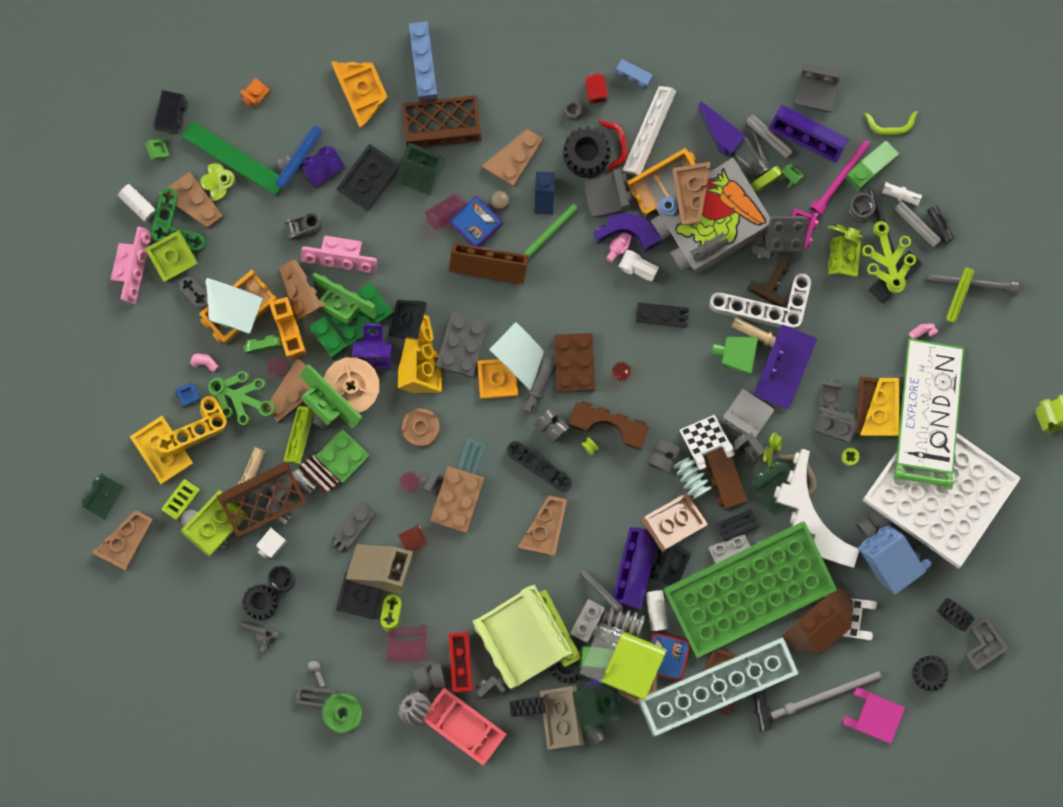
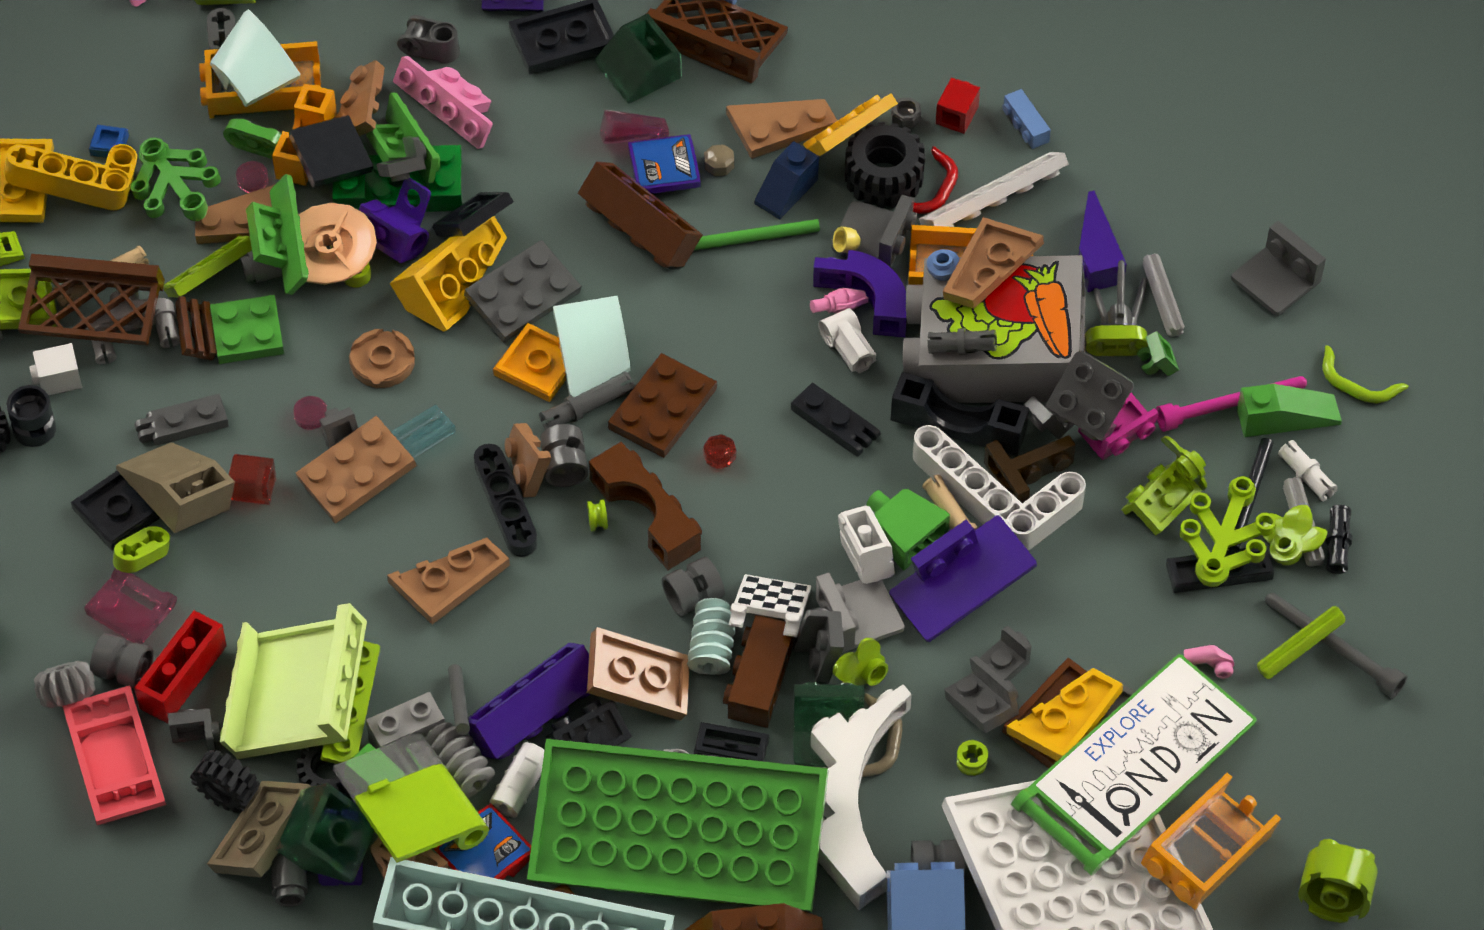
camera: 30 degrees right, 25 degrees down
(204, 359) = (167, 114): bright pink arm -> none
(314, 334) = (330, 151): none -> black tile
(358, 319) = (399, 168): none -> dark grey bracket
(534, 438) = (526, 458): none -> medium nougat wing
(555, 144) = (849, 124): none -> yellow plate
(596, 211) = (846, 239): none -> light yellow hinge
(710, 280) = (921, 403): none -> black arch
(730, 381) = (866, 544): none -> white brick
(808, 133) = (1222, 316): dark purple brick -> none
(861, 207) = (1232, 447): dark grey wheel -> none
(919, 233) = (1294, 530): none -> lime plate
(988, 433) = (1207, 844): none -> door

